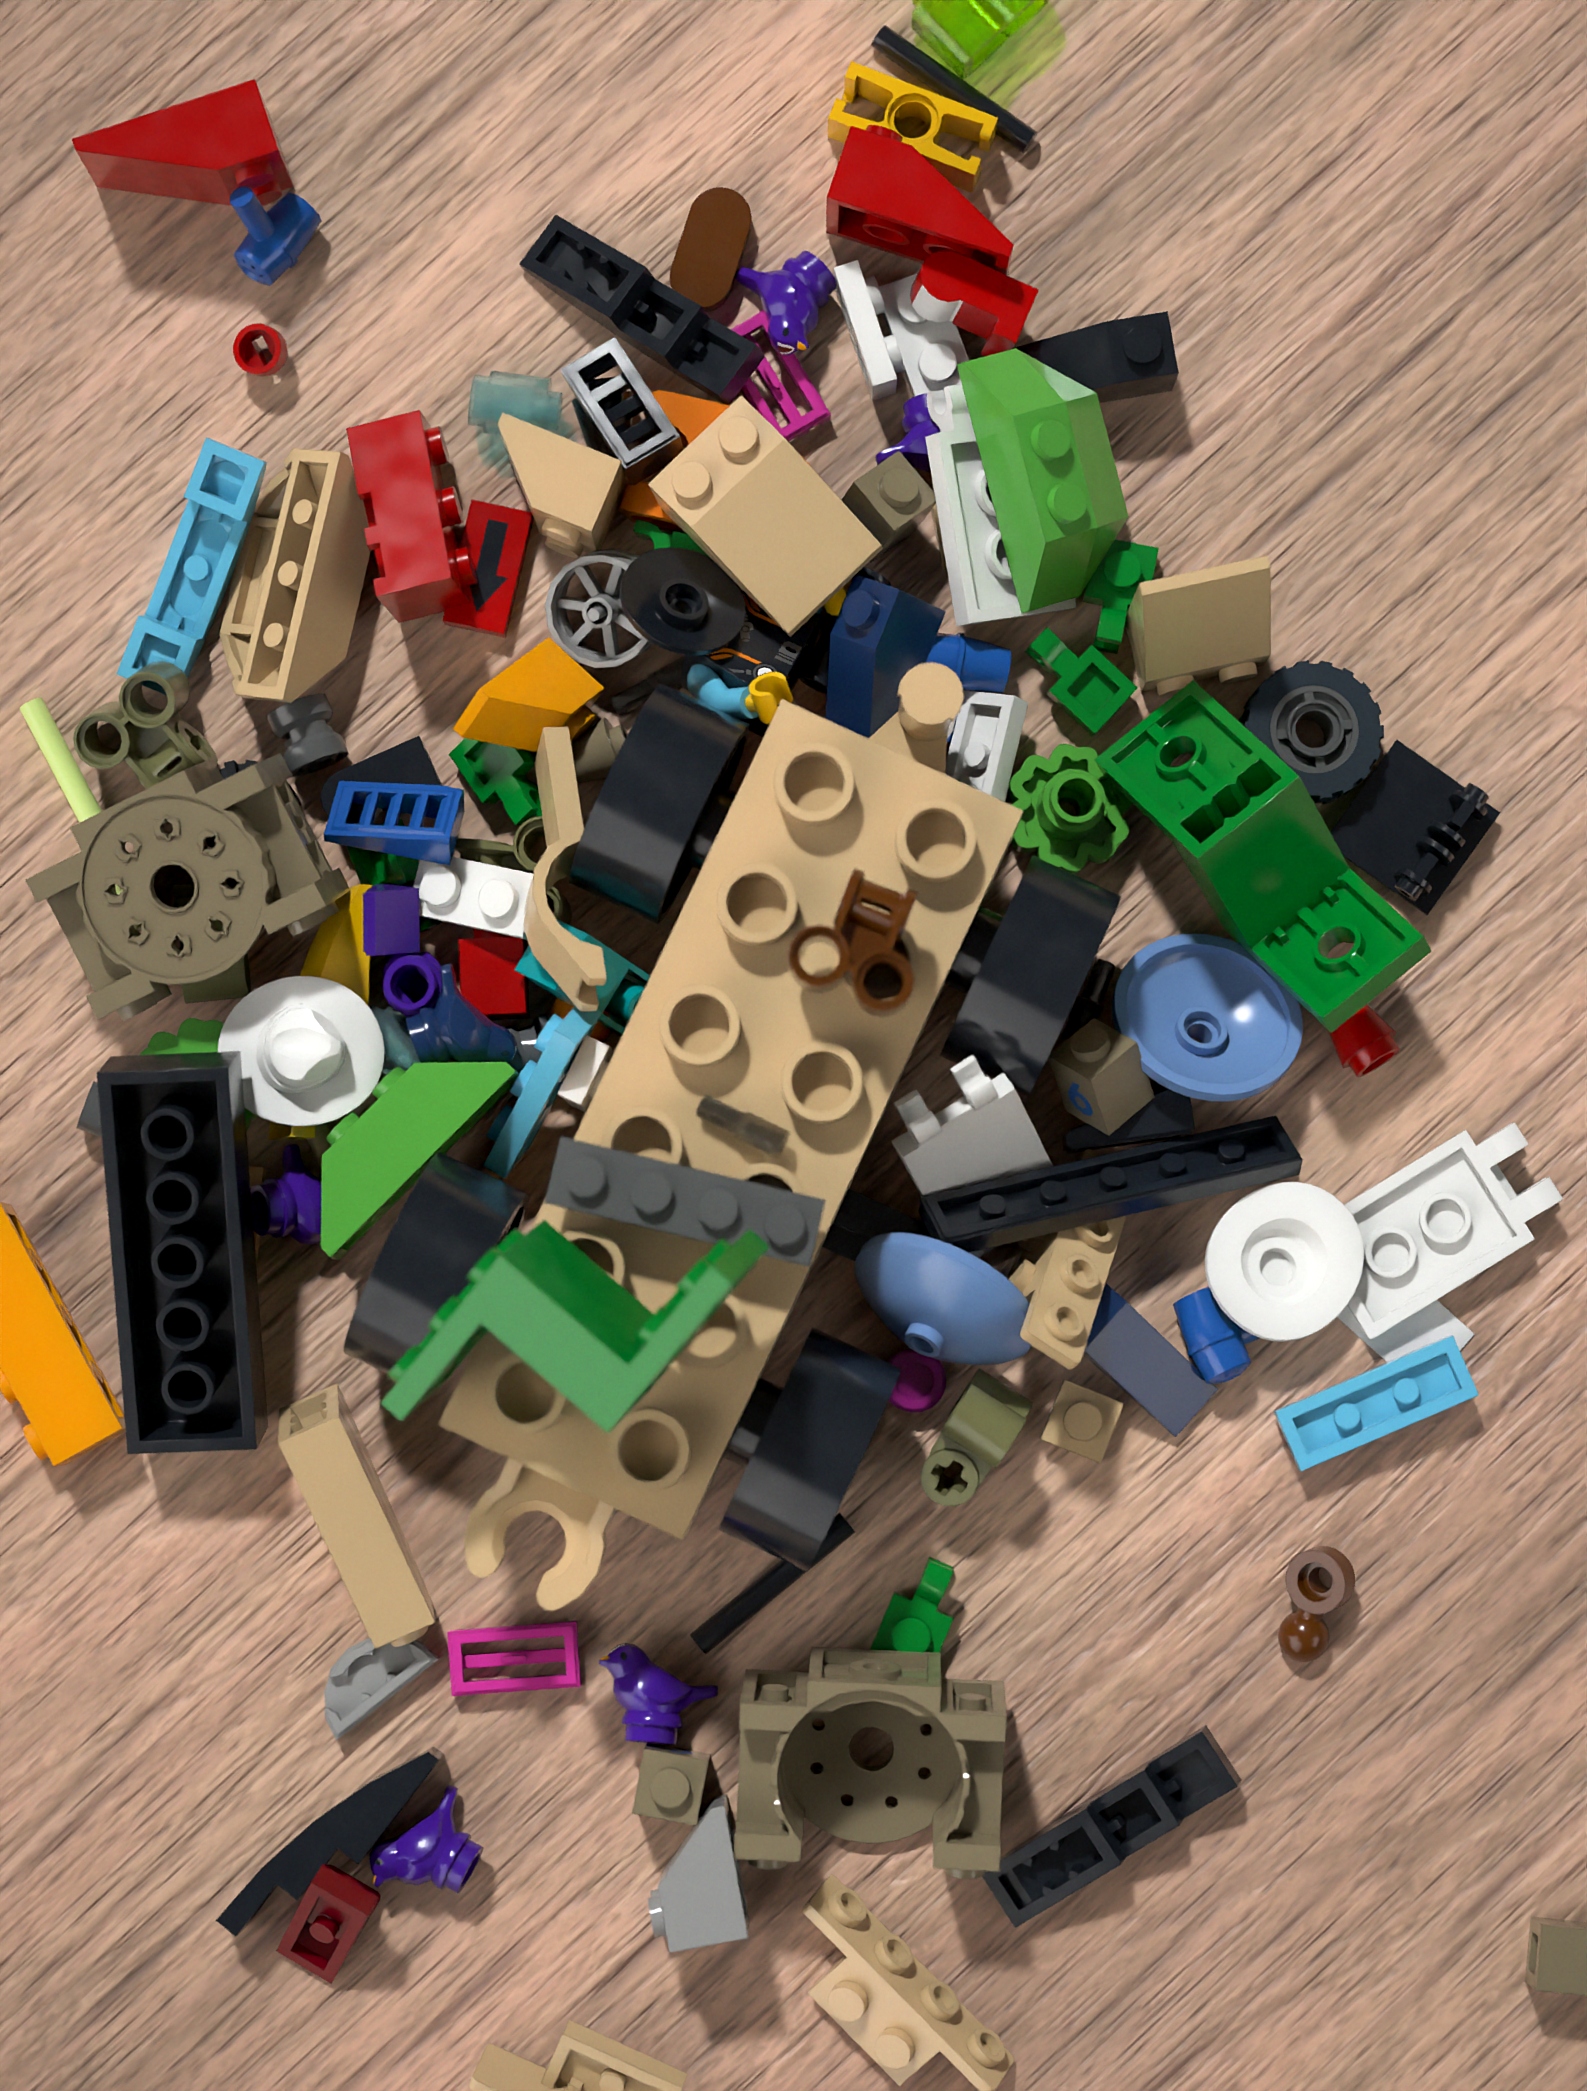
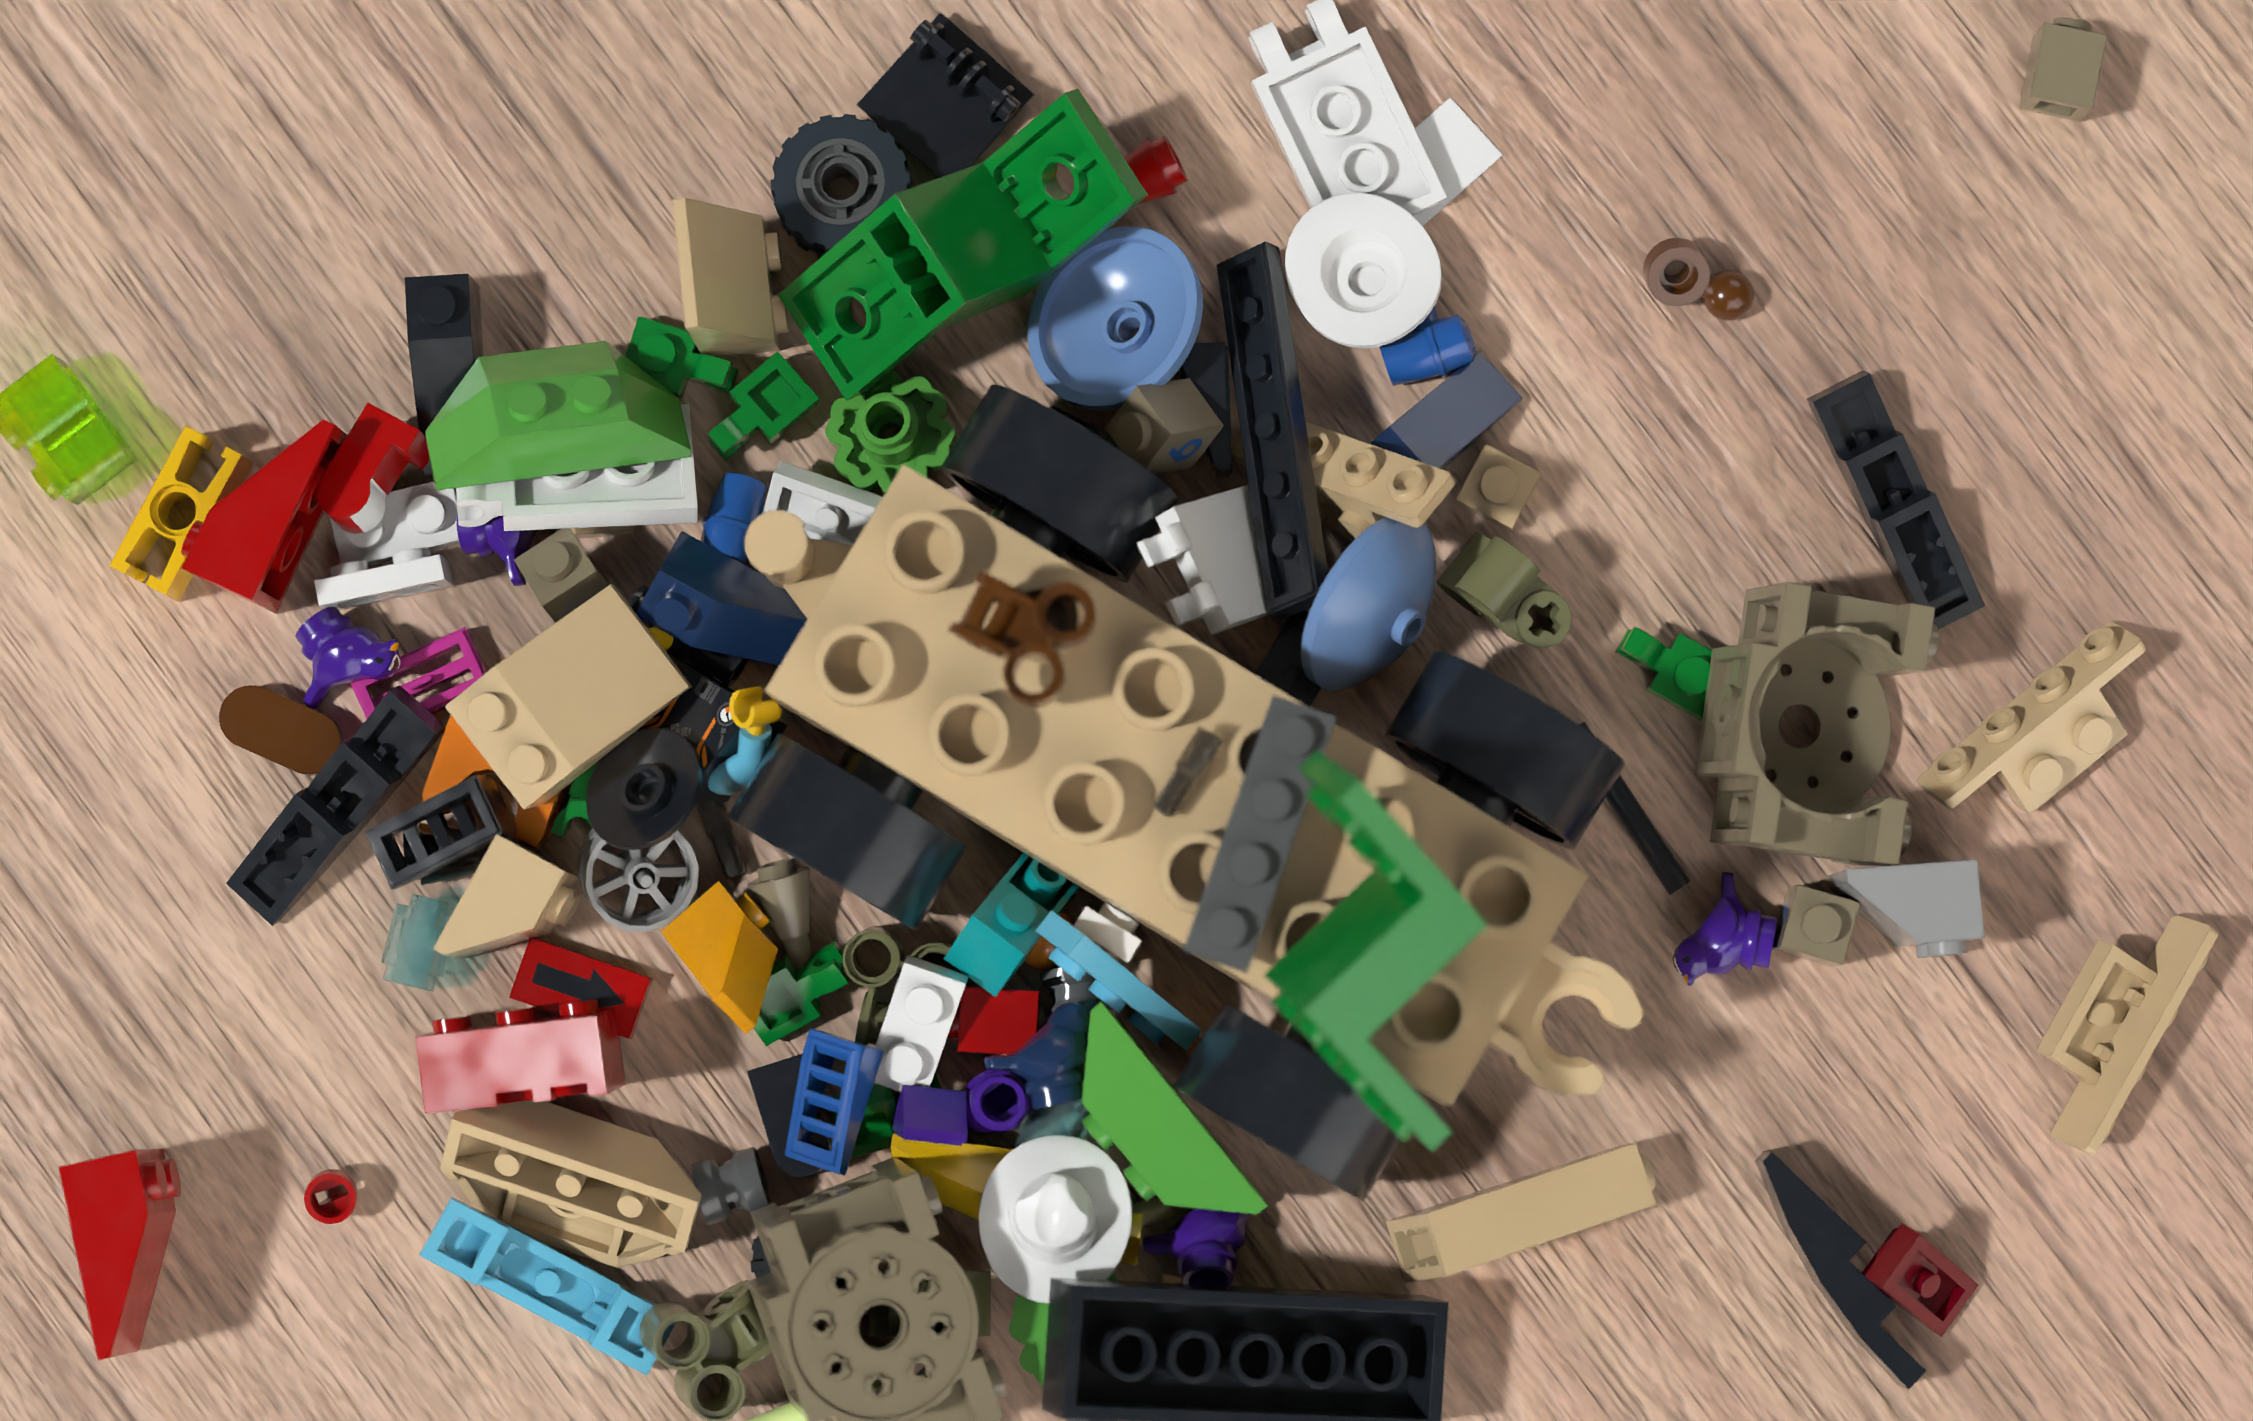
camera: 80 degrees left, 0 degrees up
(274, 236) = (214, 1171): blue piece -> none
(368, 1678) = (1682, 1218): light grey tile -> none
(428, 1851) = (1859, 1174): dark purple animal -> none
(459, 1662) = (1674, 1123): dark pink tile -> none
(570, 962) = (999, 934): tan piece -> none
(919, 1382) = (1444, 635): magenta tile -> none
(951, 86) = (142, 471): black bar -> none
(1376, 1403) = (1509, 199): medium azure plate -> none

